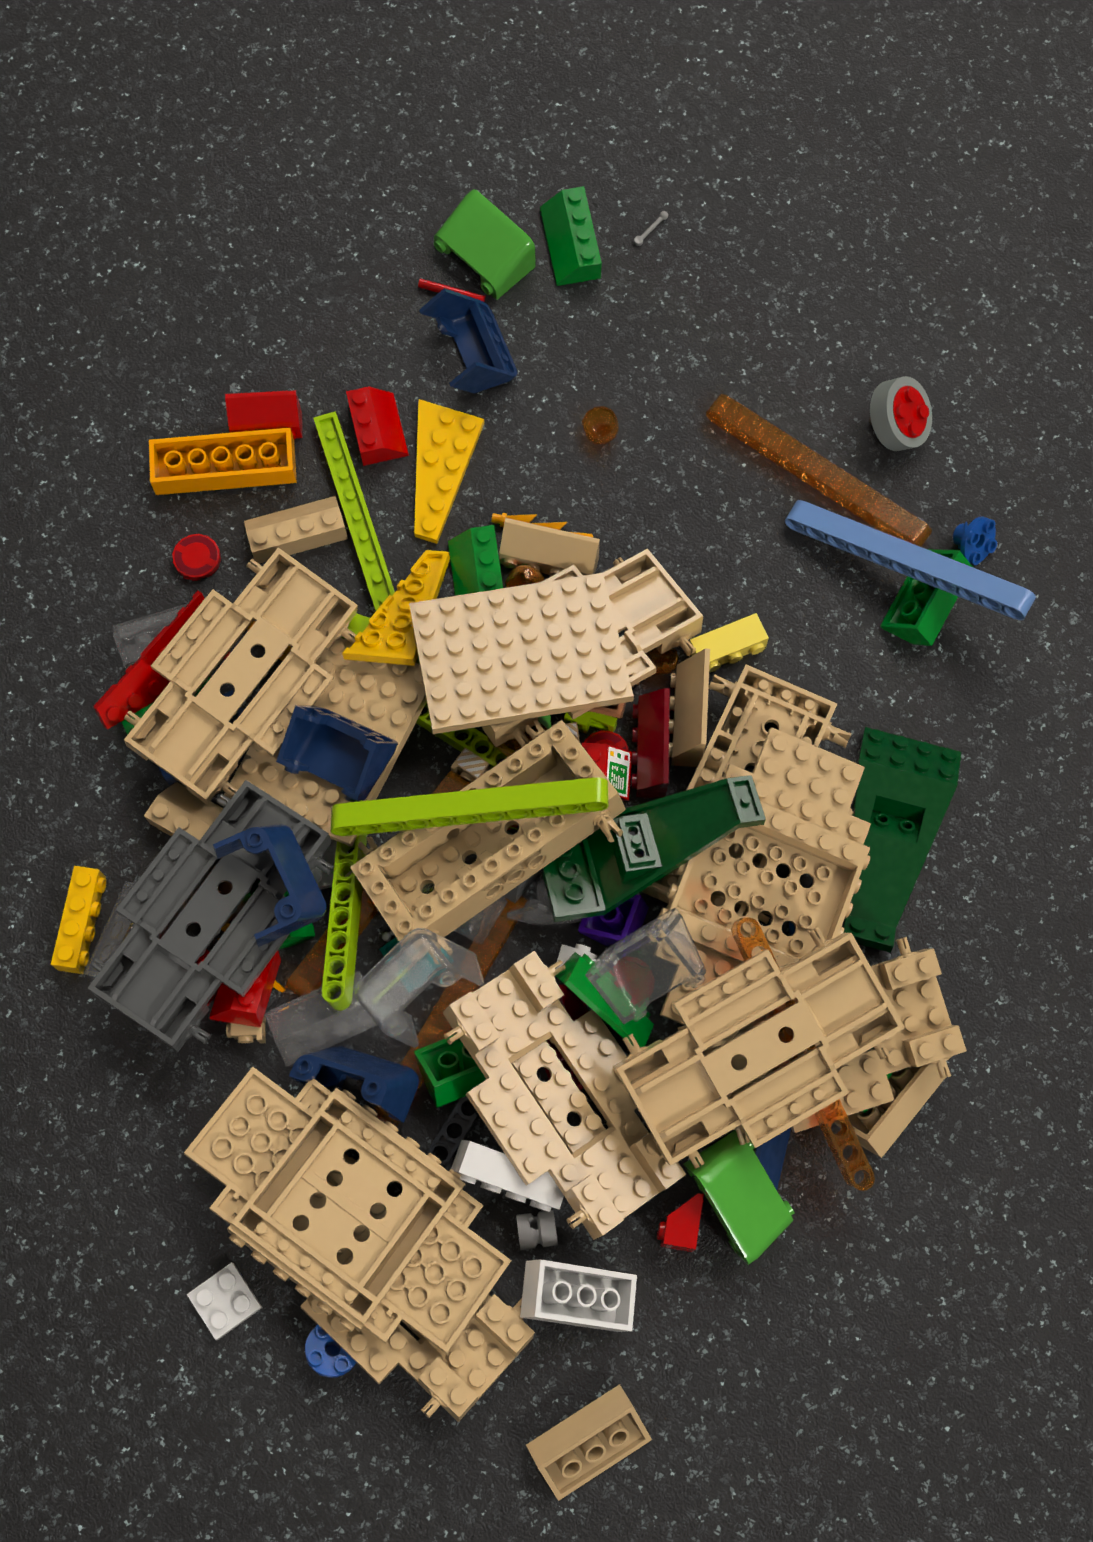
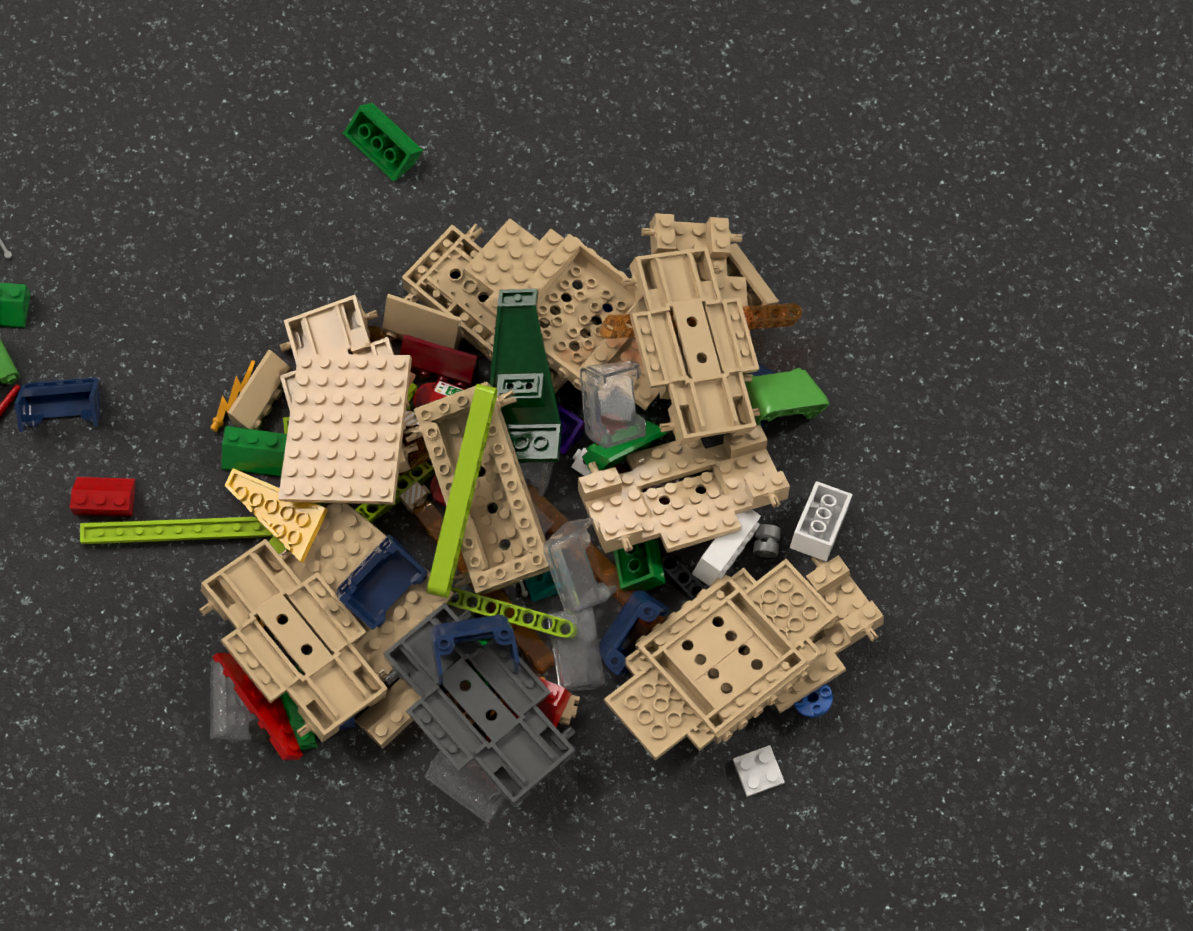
camera: 80 degrees left, 0 degrees up
(78, 920) = (448, 816): yellow brick -> none
(196, 557) = (169, 663): red tile -> none
(222, 461) = (95, 620): light orange brick -> none
(264, 411) = (68, 578): red slope -> none
(296, 529) = (171, 579): tan slope -> none
(443, 454) = (147, 453): yellow wing -> none
(523, 575) = (274, 417): clear orange hair -> none
(588, 1442) = (915, 545): tan slope -> none
(600, 425) = (164, 327): clear orange hair -> none
(682, 1226) = (790, 441): red slope -> none
(732, 641) = (374, 285): light yellow brick -> none
(817, 471) = (256, 185): clear orange beam -> none
(900, 413) = (235, 110): light grey wheel -> none
(905, 800) = (539, 205): dark green wing -> none
(911, 560) = (354, 142): medium blue beam -> none
(976, 539) = (350, 94): blue plate -> none

